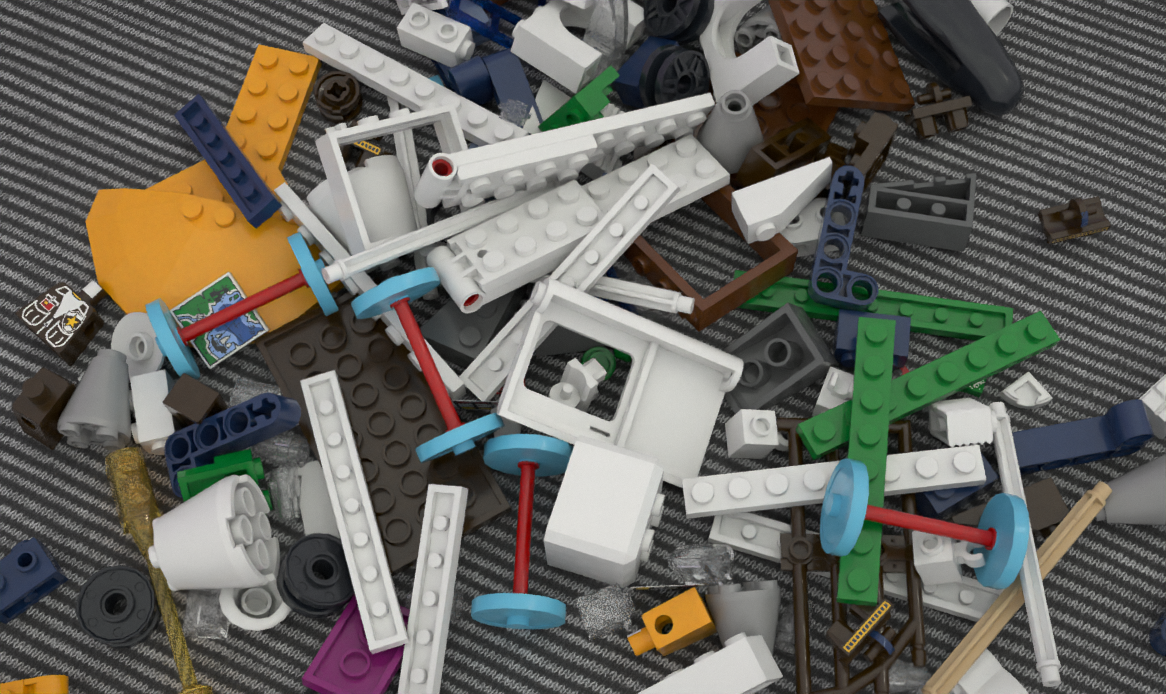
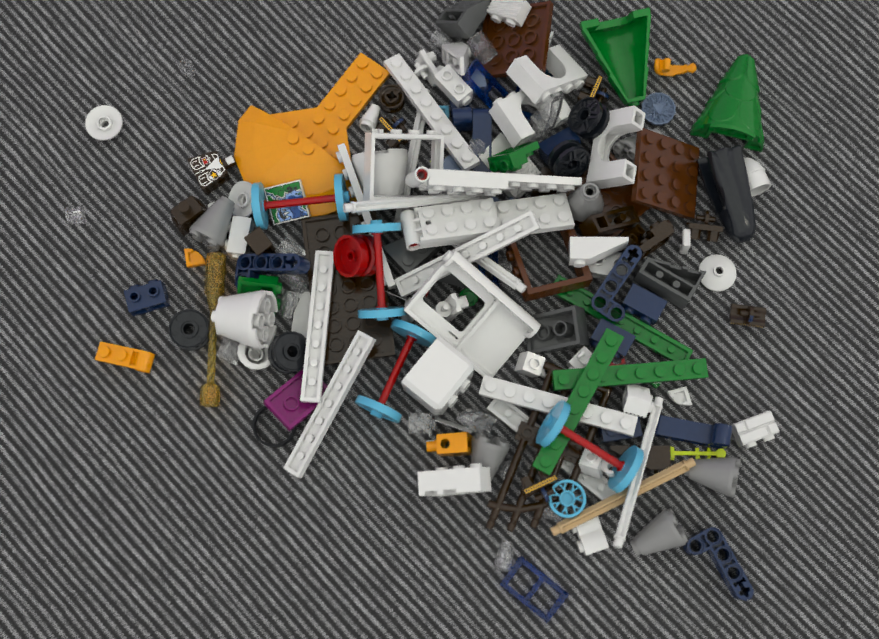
camera: 20 degrees right, 10 degrees up
(84, 480) = (193, 258): none -> light orange tile
(228, 161) = (320, 116): dark blue plate -> none
(313, 130) = (370, 118): none -> white cone
(375, 359) = (355, 255): none -> red wheel
(378, 28) = (425, 66): none -> white hips
(899, 263) = (643, 304): none -> dark blue brick
(920, 142) = (686, 241): none -> white tile
(923, 636) = (567, 498): none -> medium azure wheel
(992, 188) = (713, 280): none -> white dish
(1107, 638) = (659, 534): none -> light grey cone
(1134, 461) = (719, 453): none -> neon yellow piece

